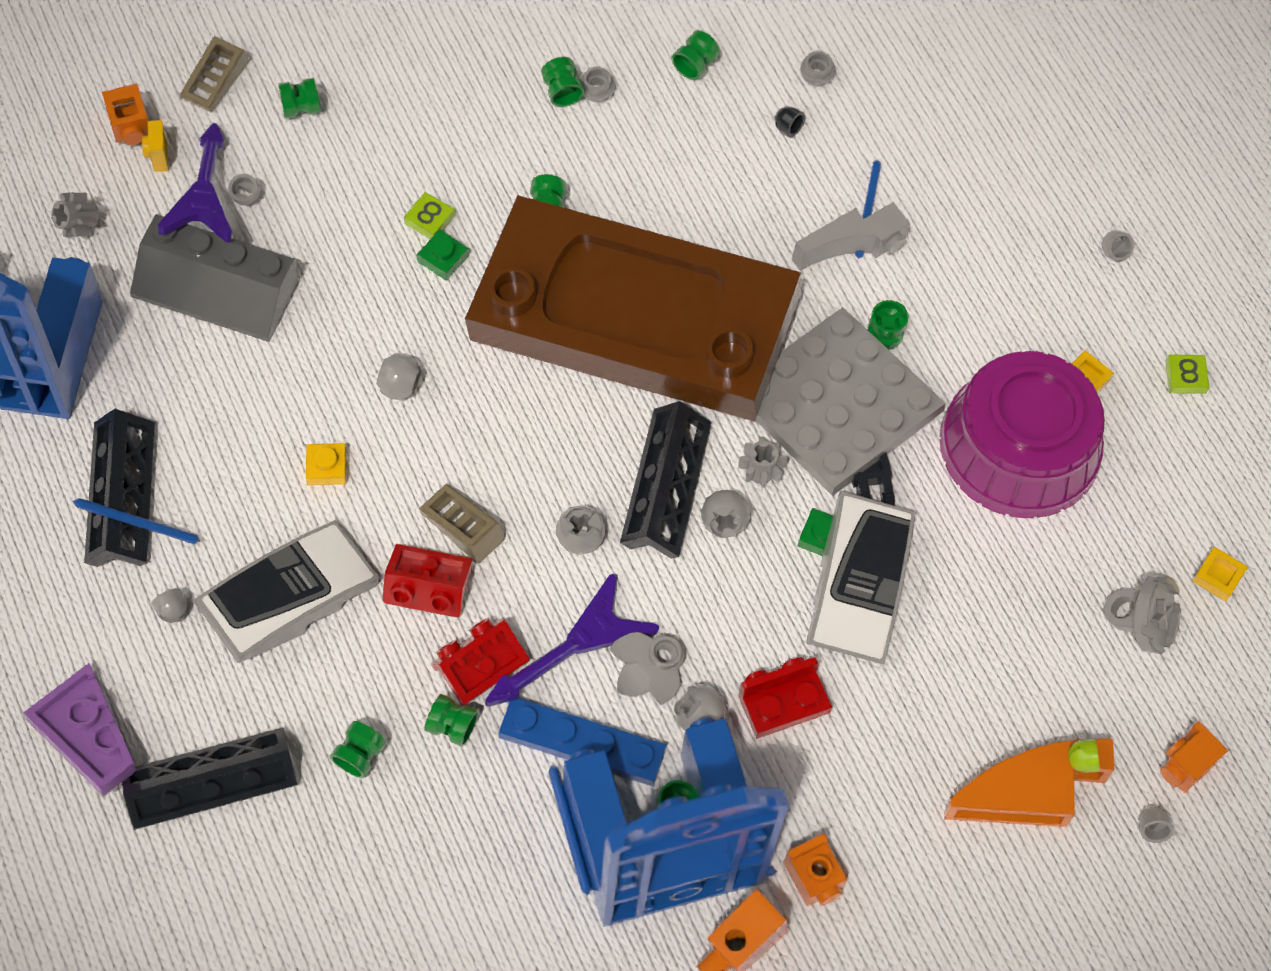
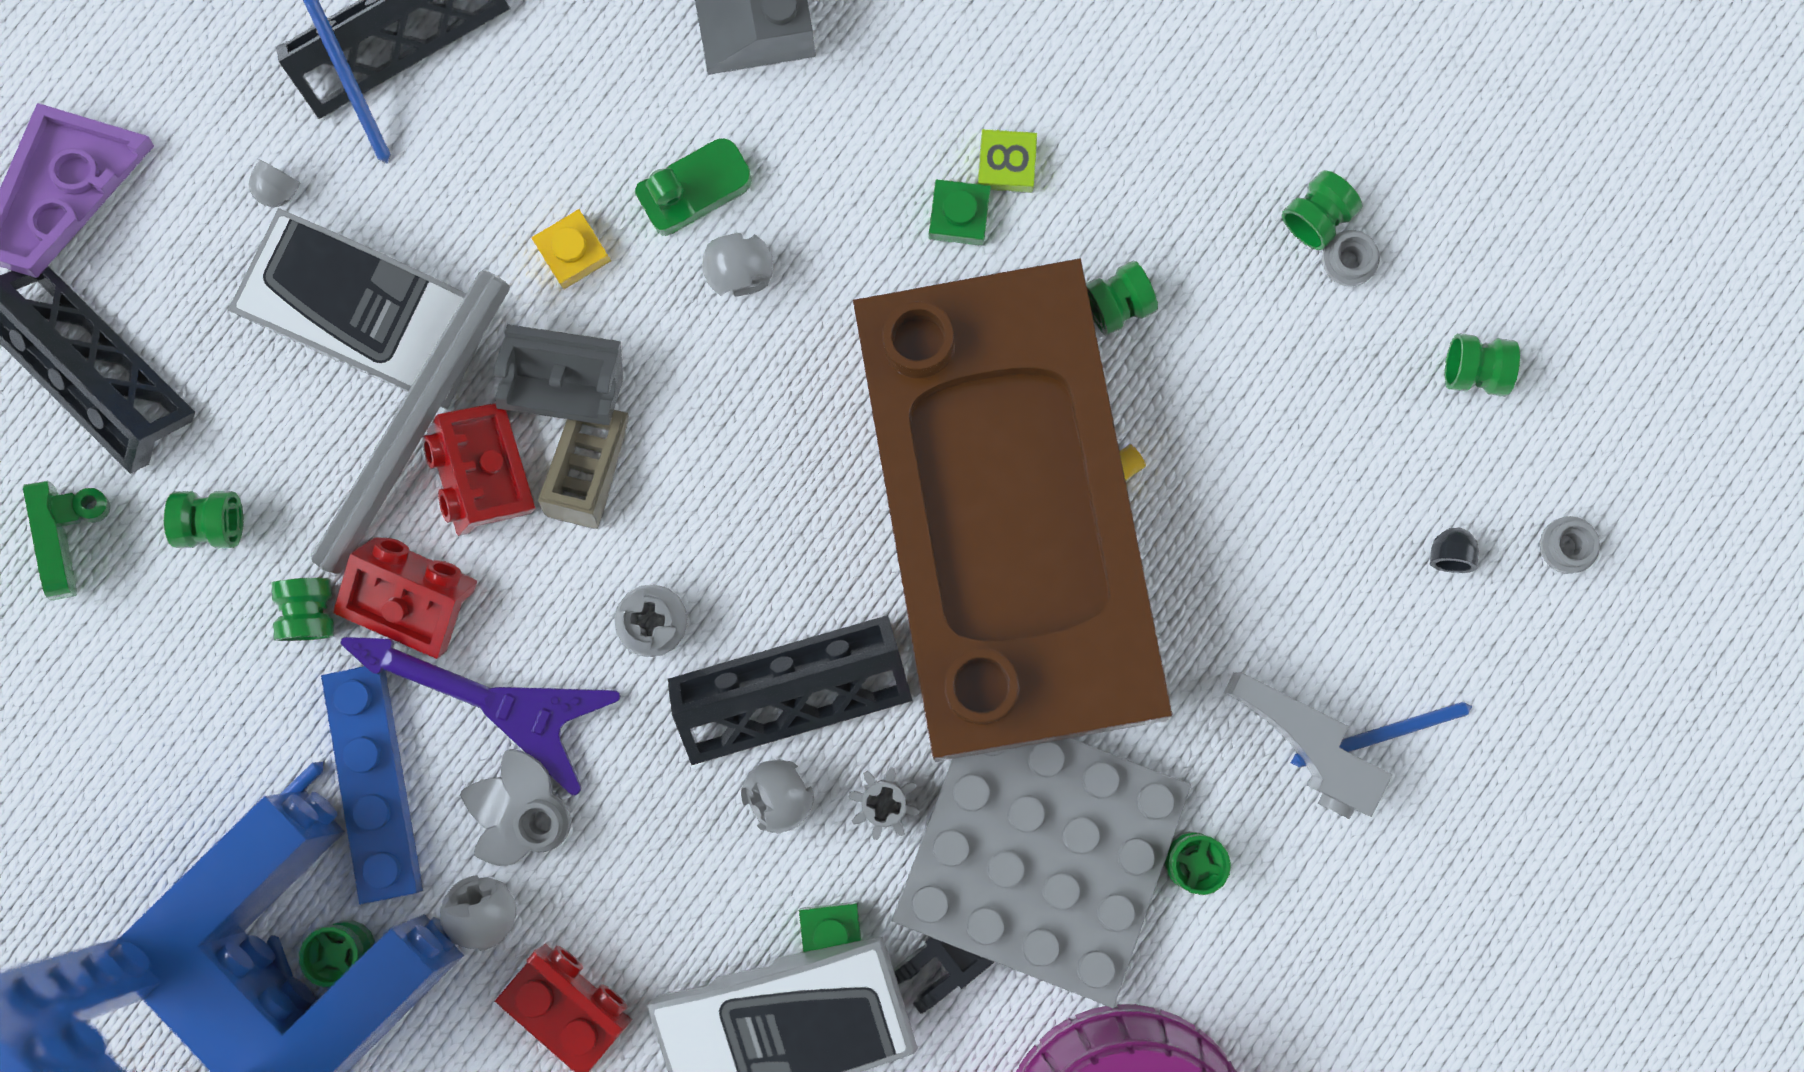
camera: 65 degrees right, 20 degrees up
(310, 847) = (46, 516): none -> green piece
(333, 380) = (694, 186): none -> green piece
(378, 597) = (410, 422): none -> light grey axle
(401, 501) = (558, 374): none -> dark grey hinge

